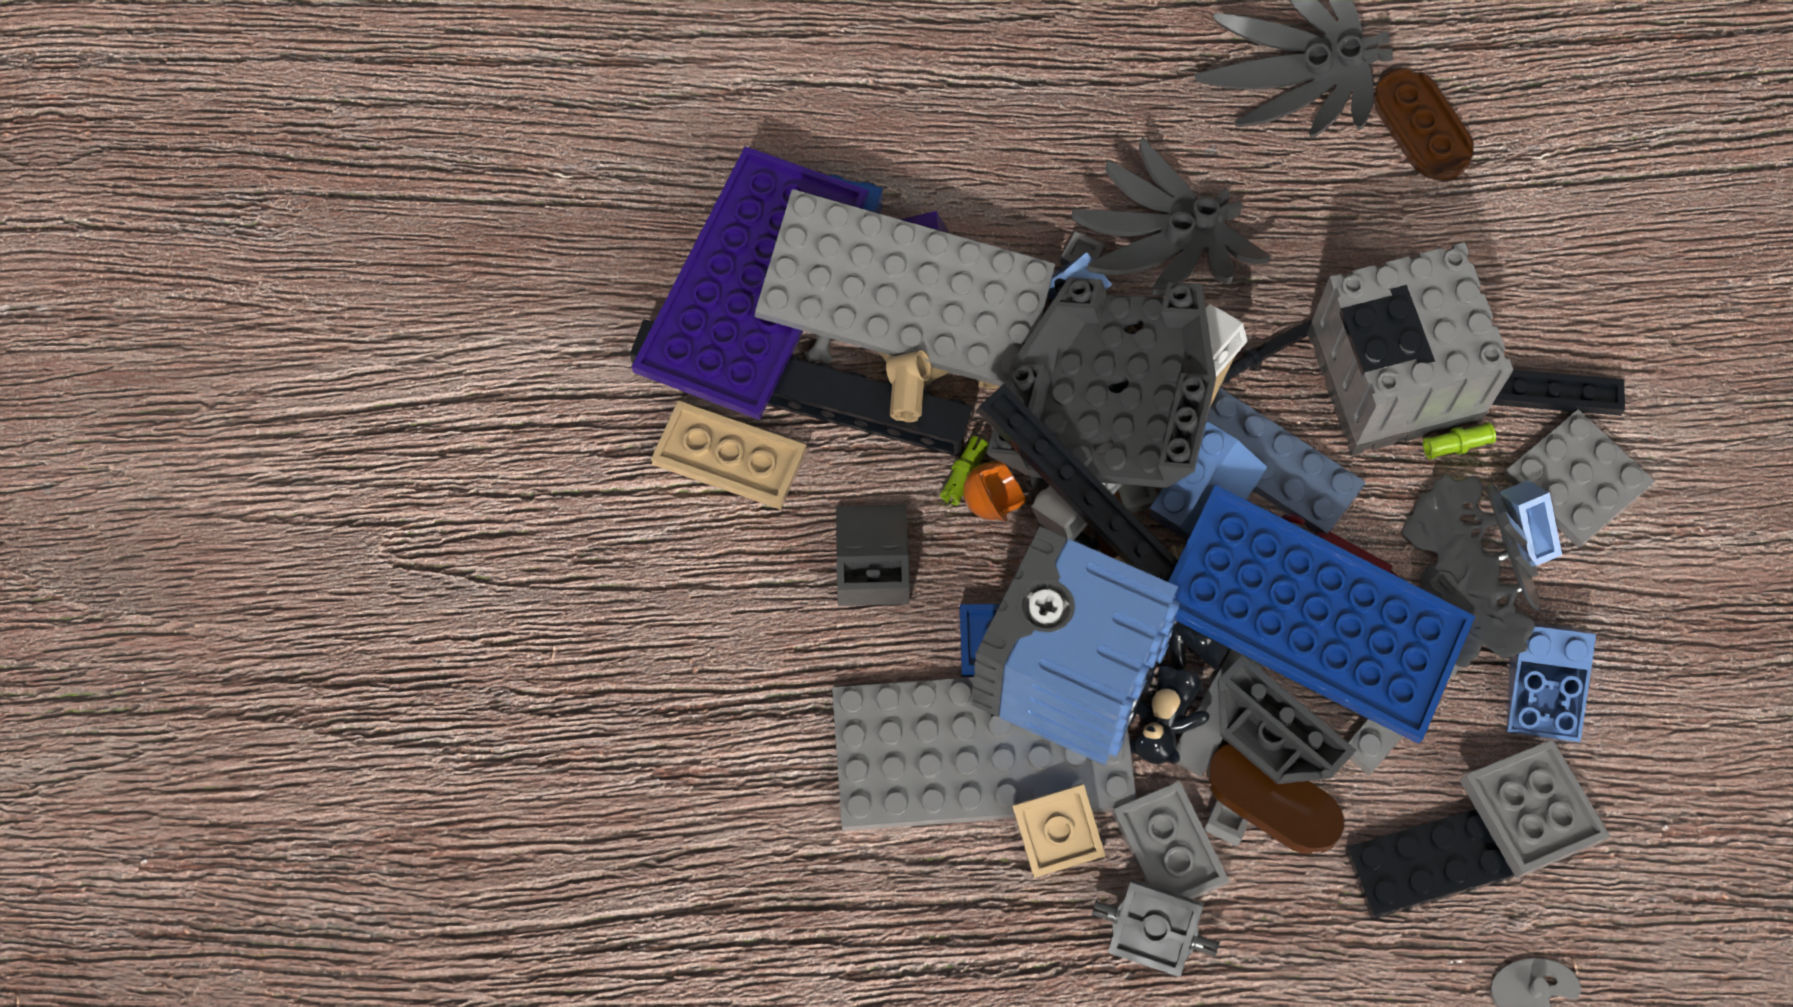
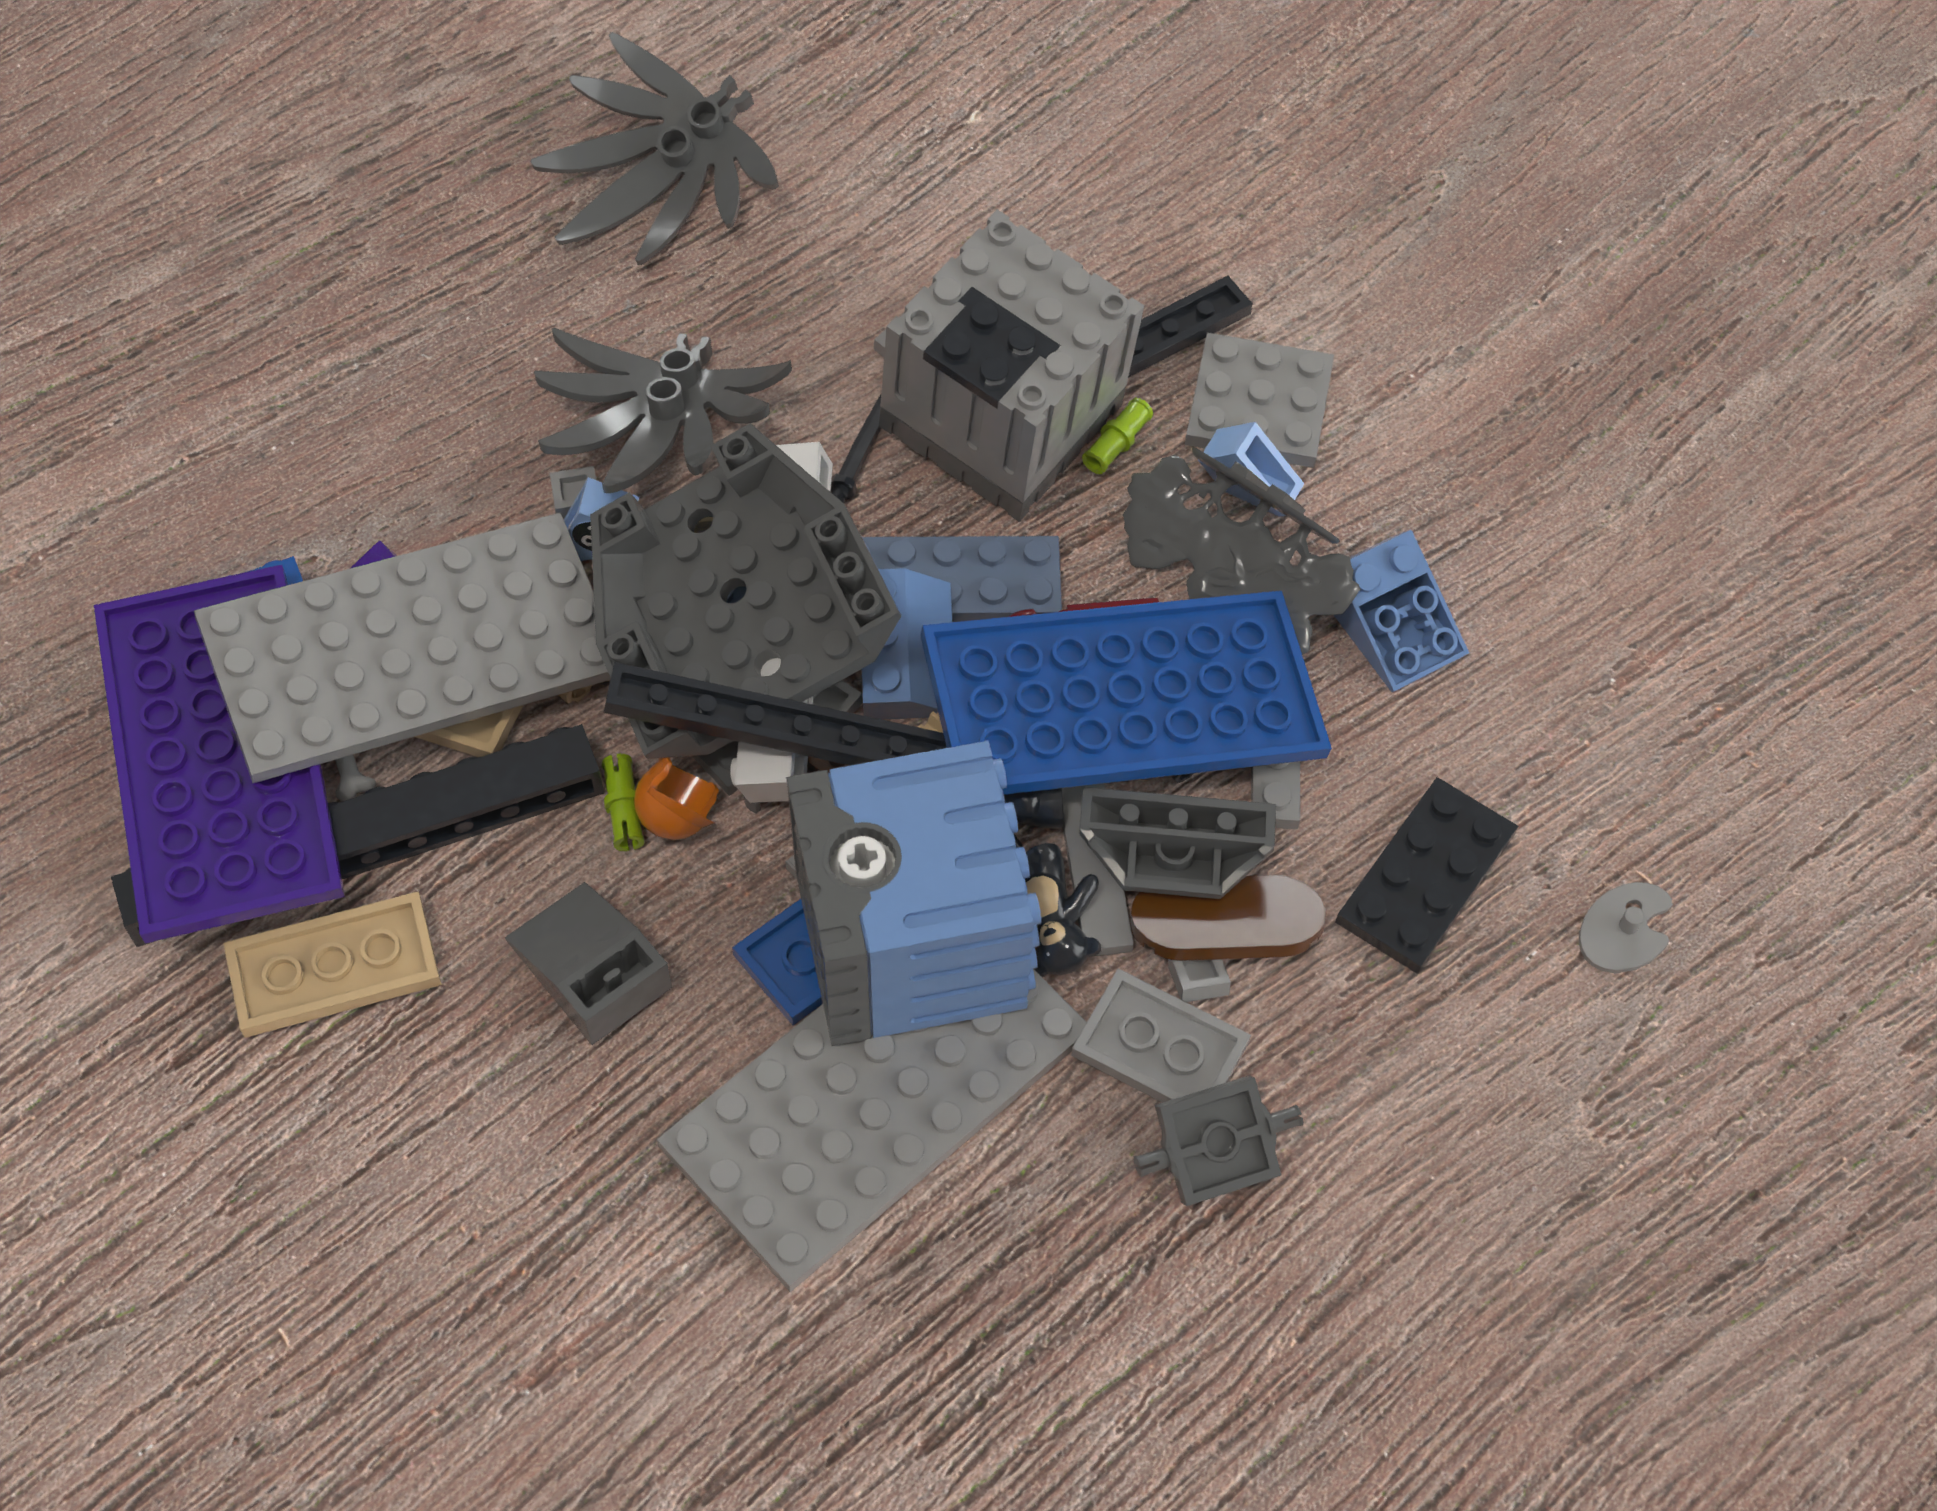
camera: 40 degrees left, 5 degrees down
(907, 378) = (486, 737): tan piece -> none
(1058, 830) = (1033, 1113): tan plate -> none
(1423, 124) = (832, 152): reddish brown tile -> none
(1534, 808) = (1485, 745): light grey plate -> none

